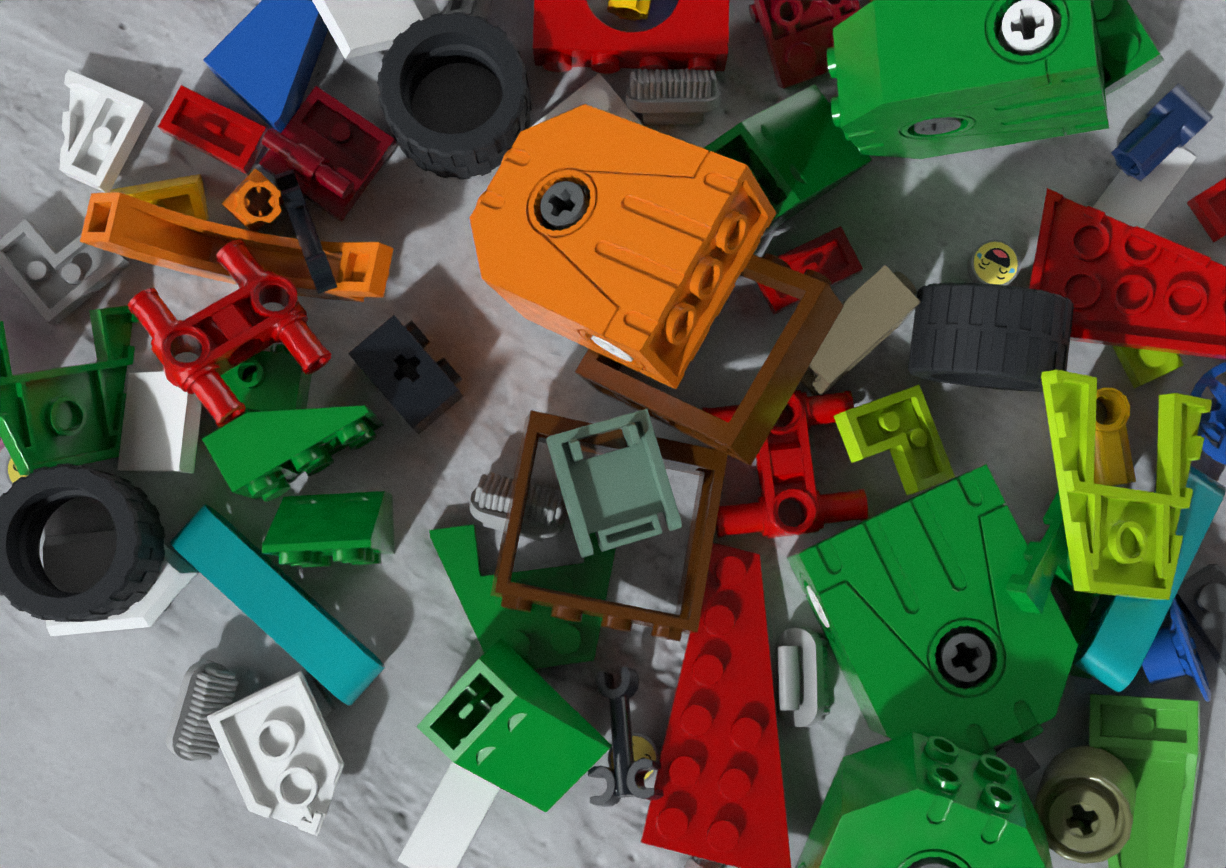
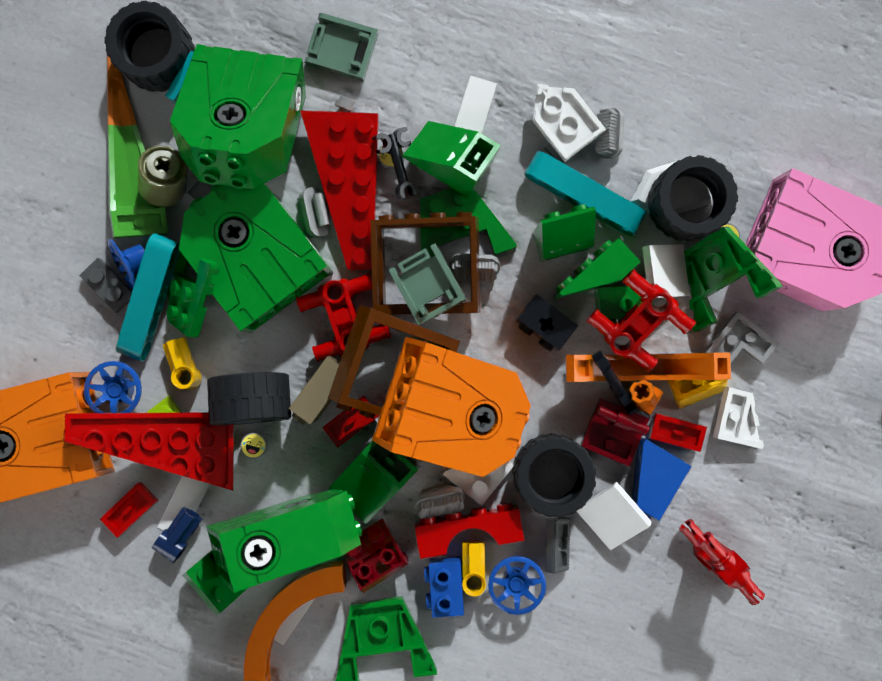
camera: 170 degrees right, 5 degrees up
(906, 429) = (285, 347): lime plate -> none
(1117, 535) = (164, 307): lime wing -> none

